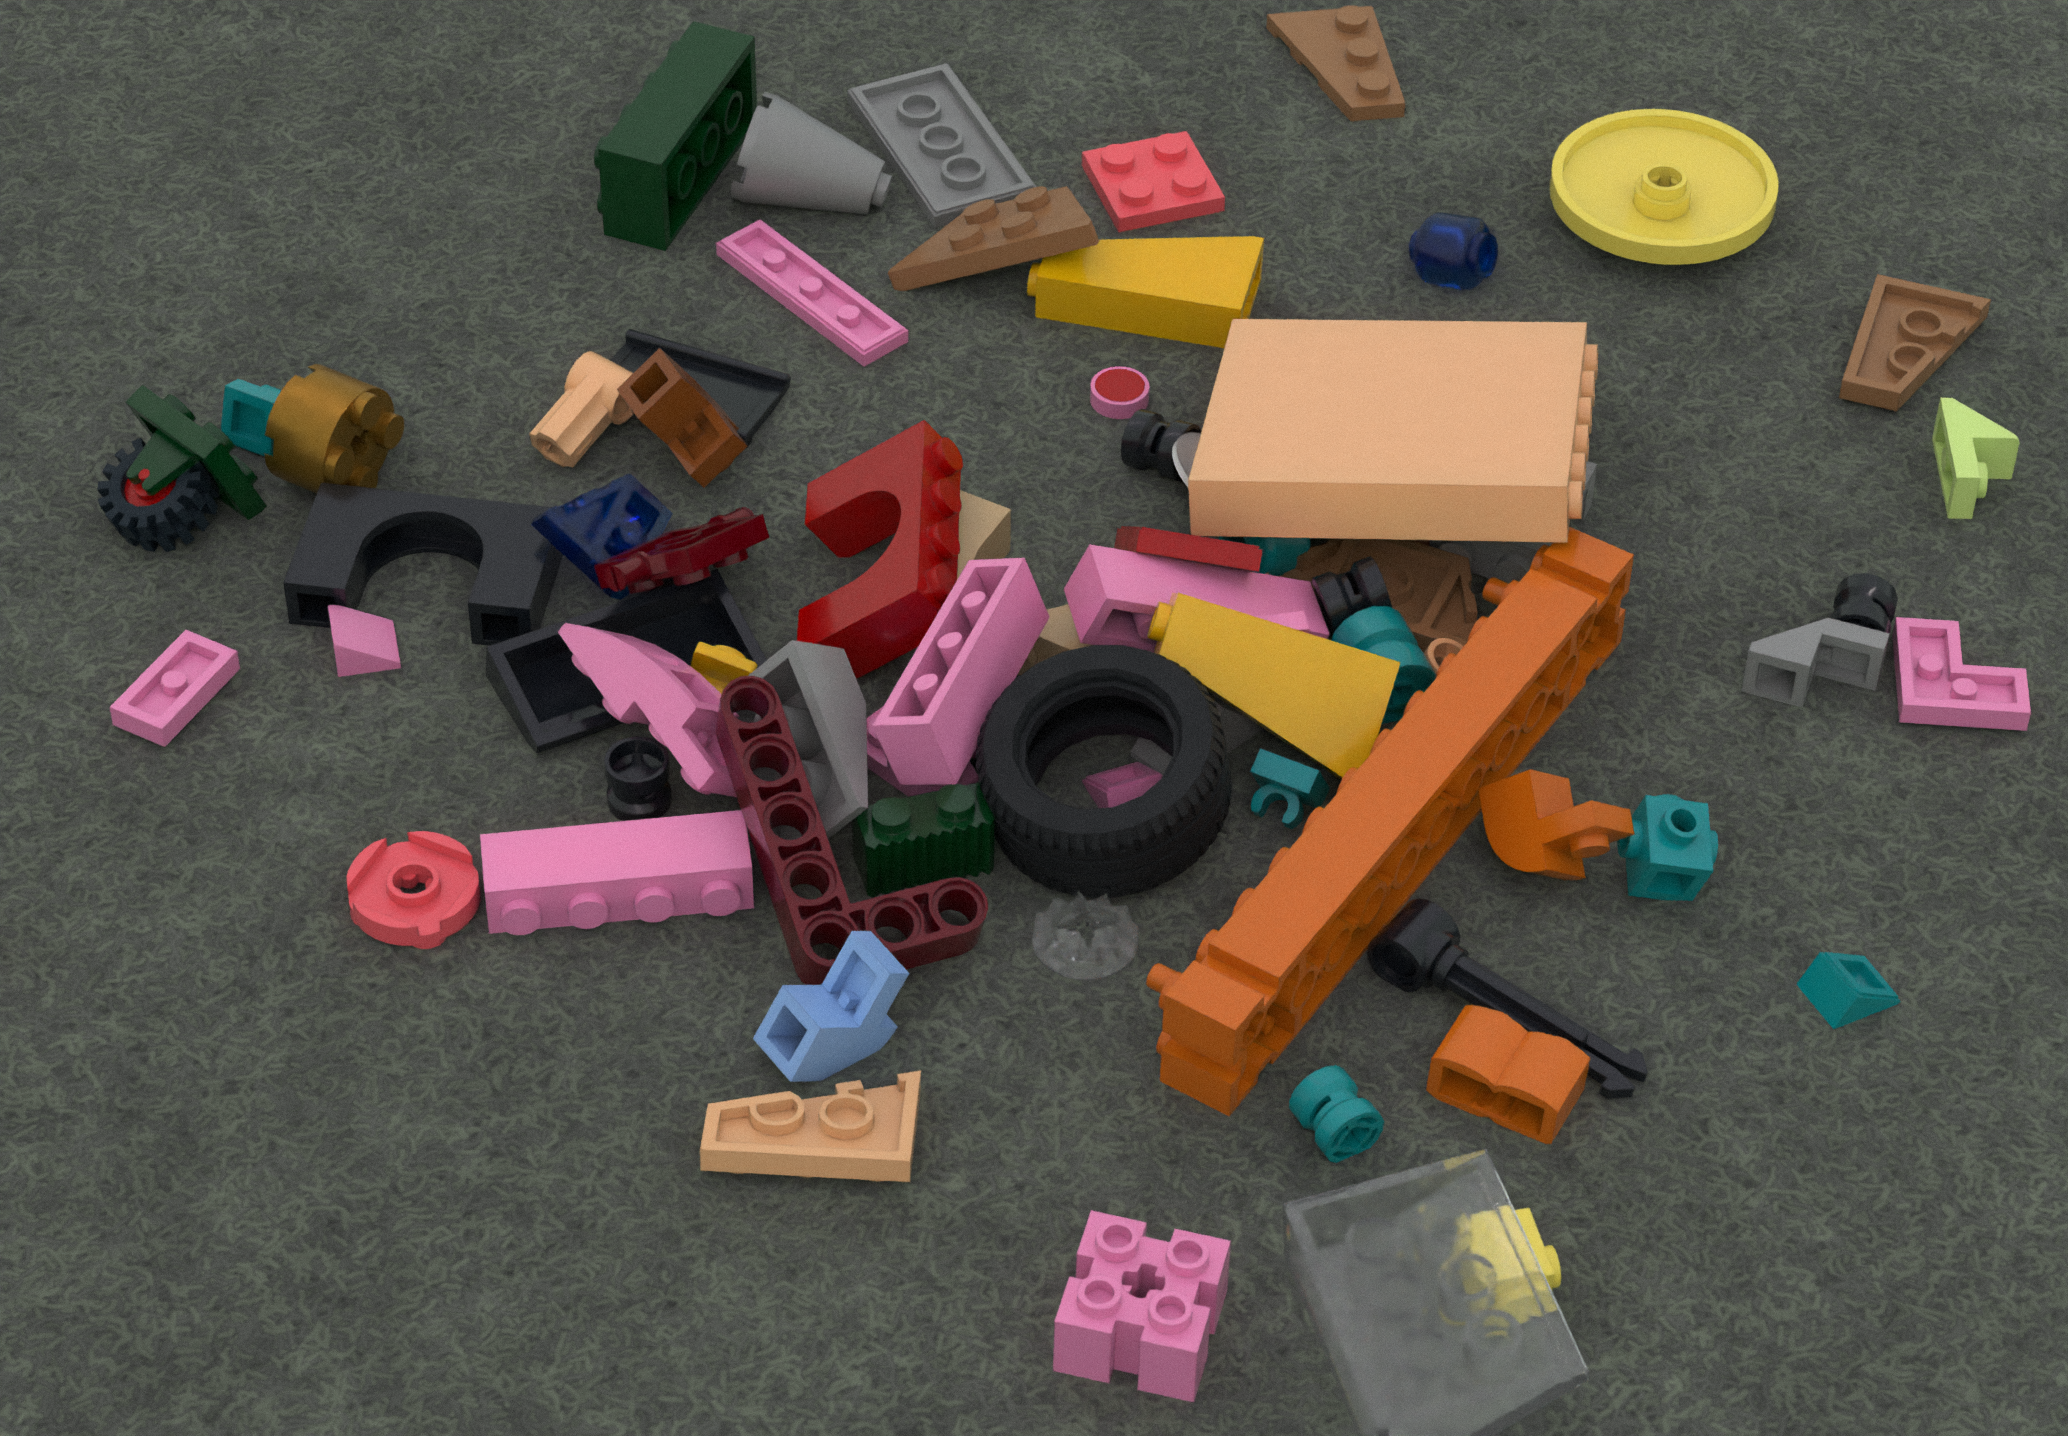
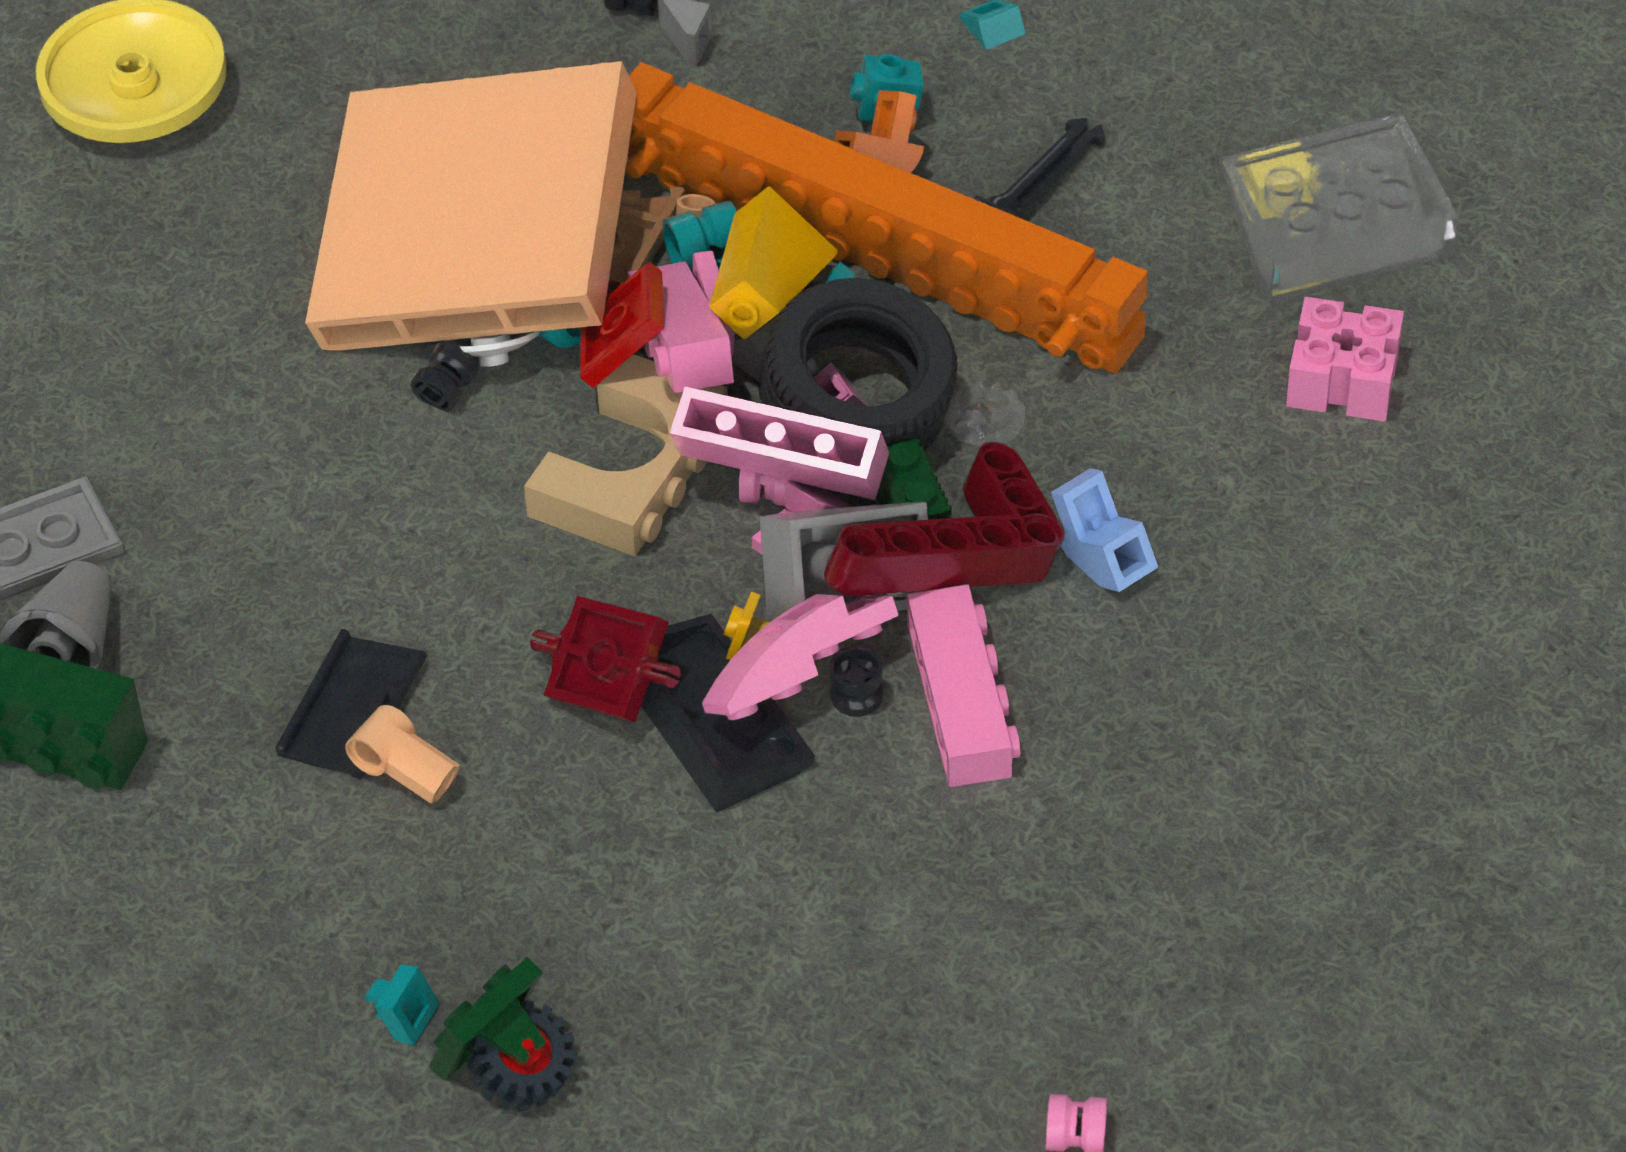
camera: 90 degrees left, 5 degrees up
(175, 688) = (759, 1016): bright pink plate -> none
(331, 430) = (456, 920): pearl gold brick -> none
(362, 641) = (690, 897): bright pink slope -> none
(364, 528) = (580, 793): black arch -> none
(420, 917) = (988, 845): coral plate -> none
(604, 525) = (563, 723): clear blue wing -> none
(683, 417) = (438, 670): dark orange brick -> none
(812, 292) = (218, 628): bright pink tile -> none
(828, 1136) = (1201, 546): light nougat wing -> none
(899, 489) = (543, 494): red arch -> none
(998, 236) = (179, 477): medium nougat wing -> none
(1119, 392) = (361, 415): tile -> none
(1153, 181) = (75, 403): coral plate -> none
(1153, 286) = (240, 383): yellow slope -> none
(1330, 1107) = (1161, 260): teal wheel -> none
(1338, 592) = (647, 239): black wheel -> none
(1453, 251) = (197, 202): clear blue head -> none
(1508, 1073) = (1102, 180): orange brick -> none

